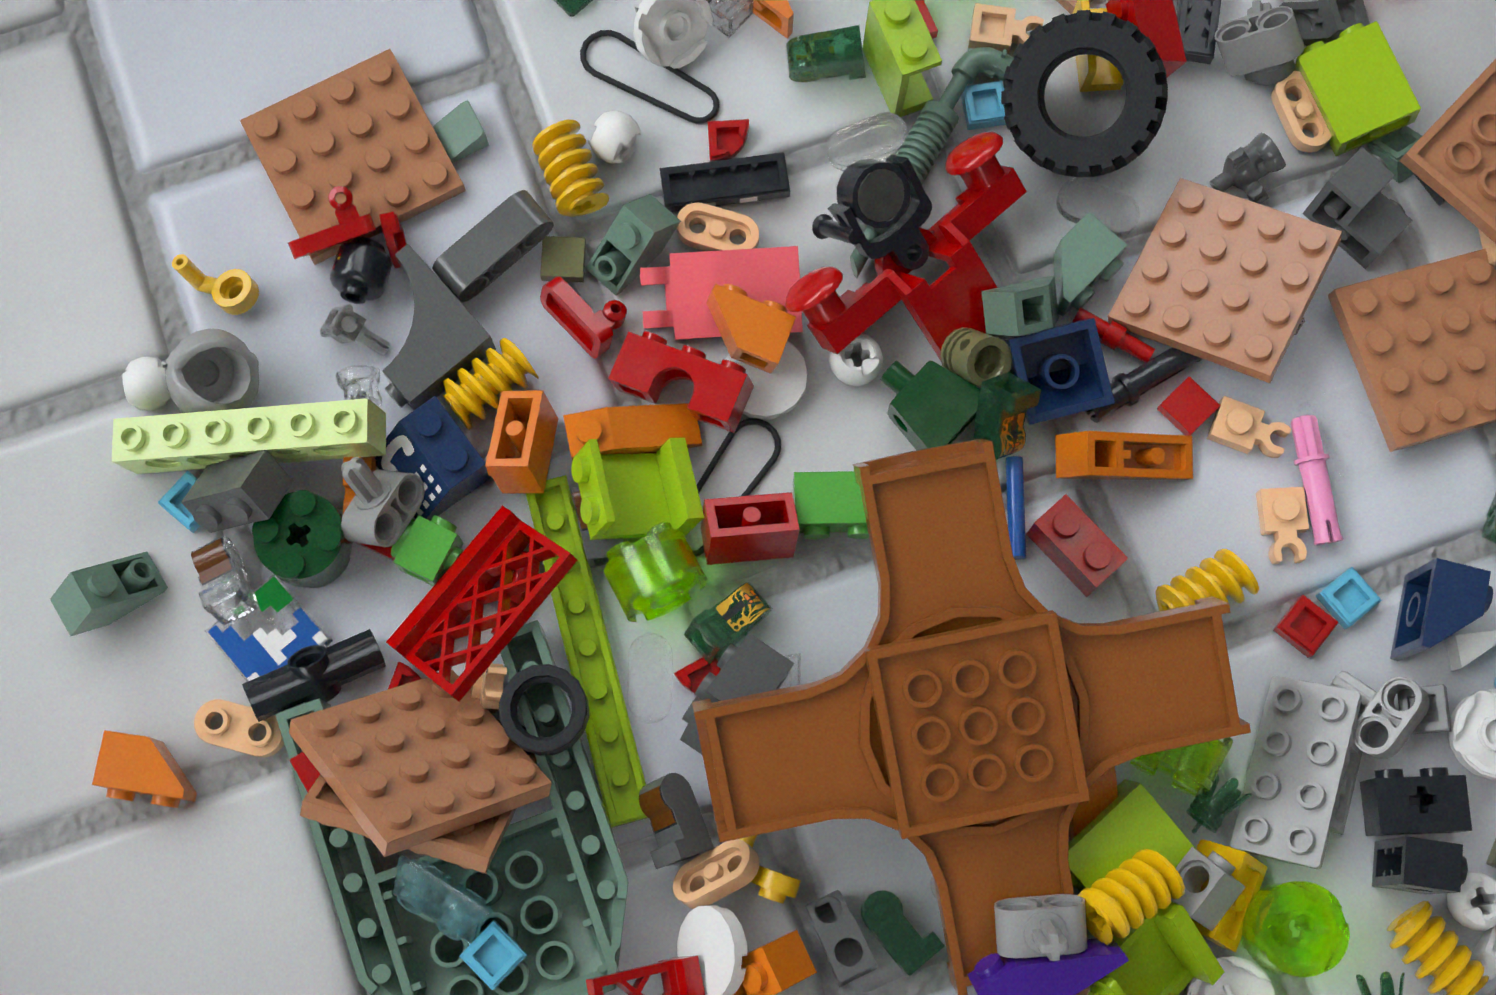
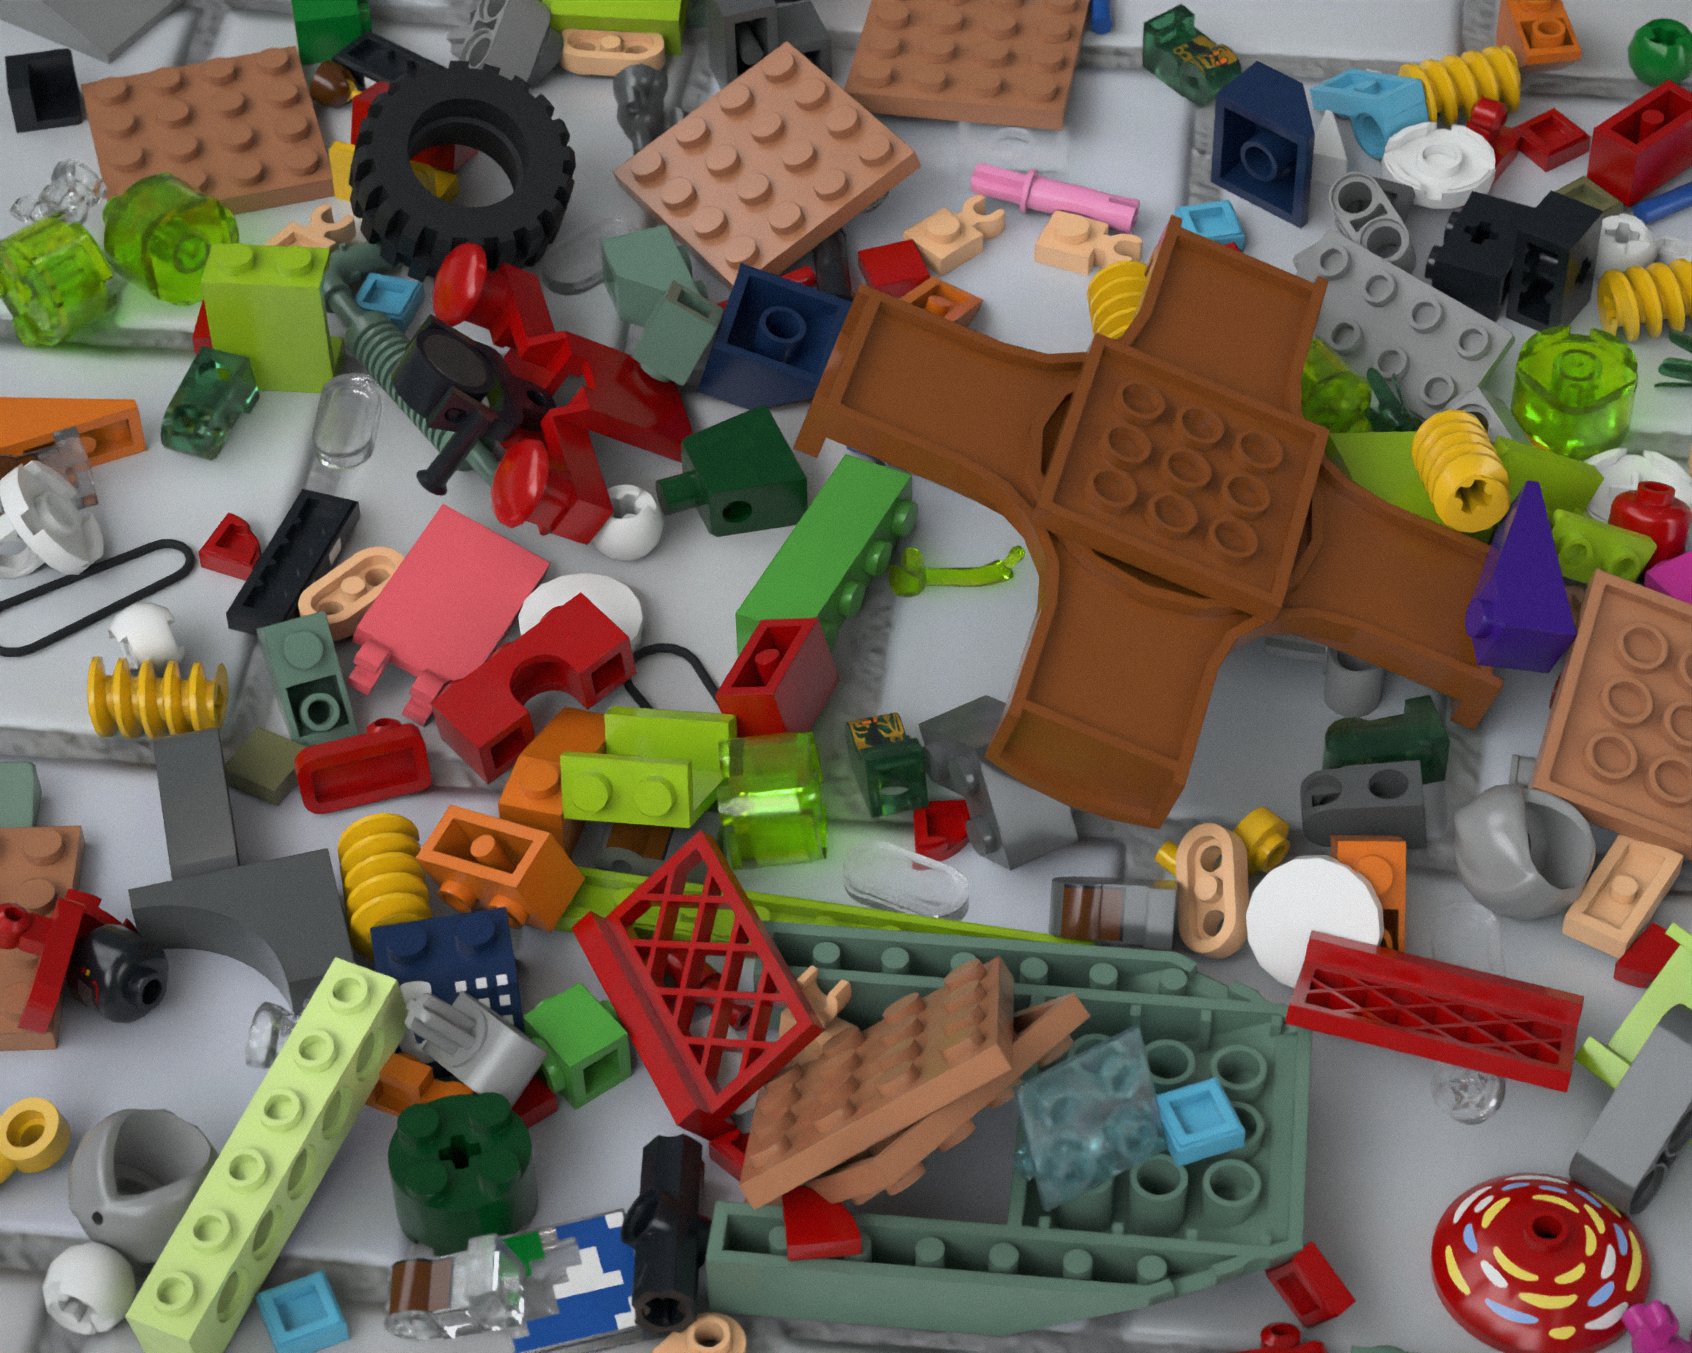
camera: 60 degrees left, 30 degrees down
(237, 491) = (345, 1202): dark grey brick -> none
(348, 327) = (185, 1017): piece -> none
(515, 689) = (894, 898): black tyre -> none
(749, 328) = (511, 583): orange slope -> none
(975, 355) = (706, 396): olive piece -> none
(1003, 412) = (788, 393): clear green leg -> none
(1041, 926) = (1459, 546): light grey beam -> none

